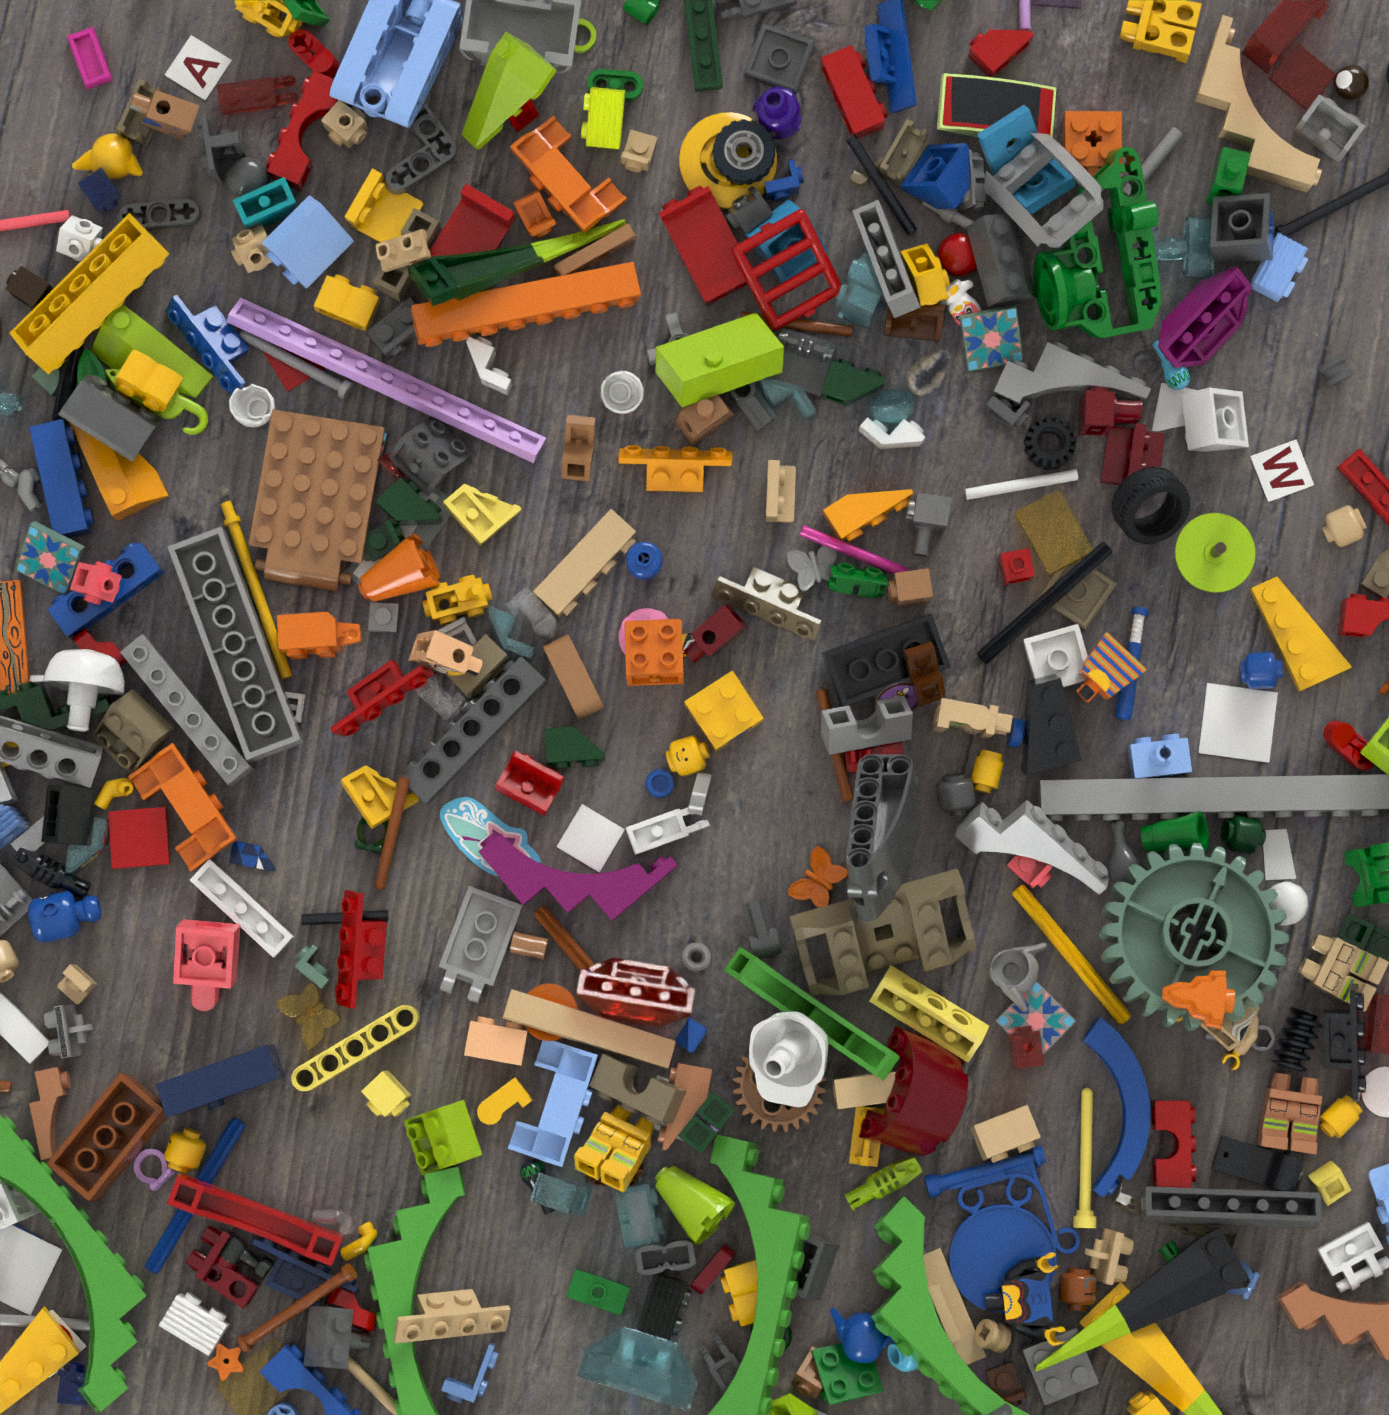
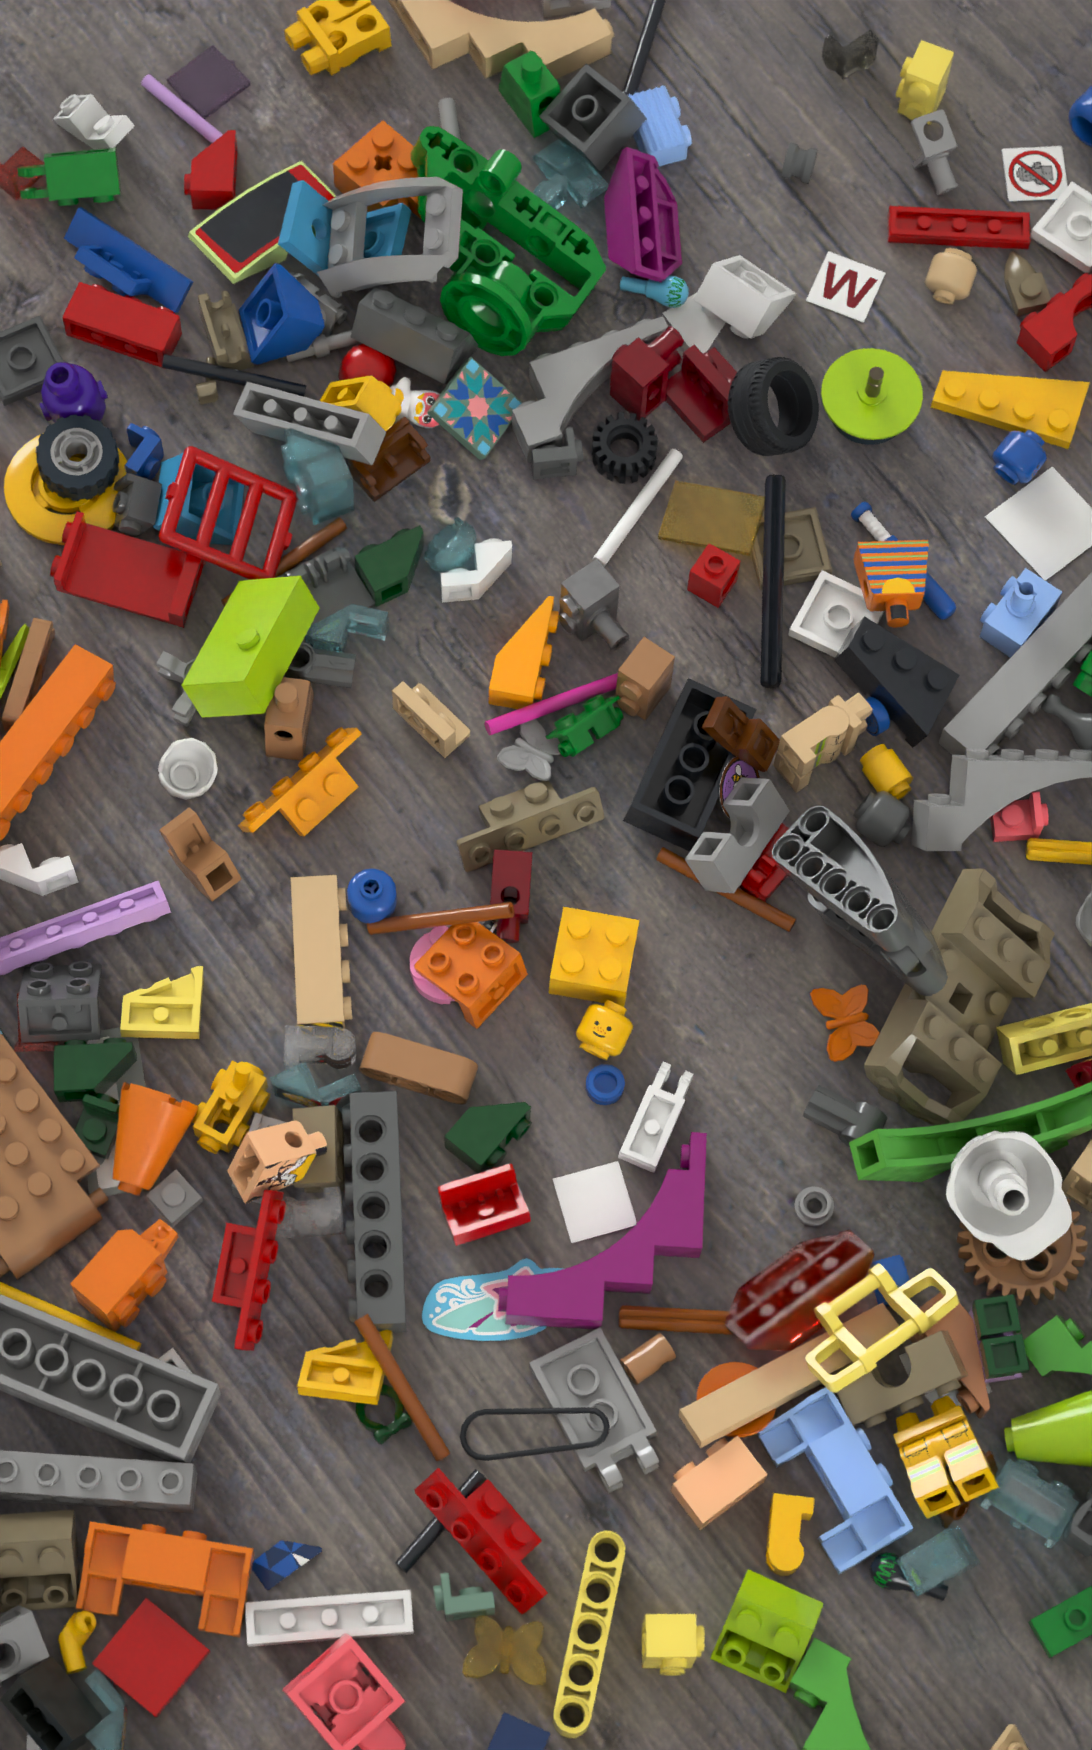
camera: 50 degrees left, 15 degrees down
(419, 928) = (582, 1410): none -> black piece
(627, 1063) = (899, 1300): none -> light yellow bar
(655, 601) = (442, 918): none -> dark orange piece
(699, 793) = (654, 1049): light grey beam -> none

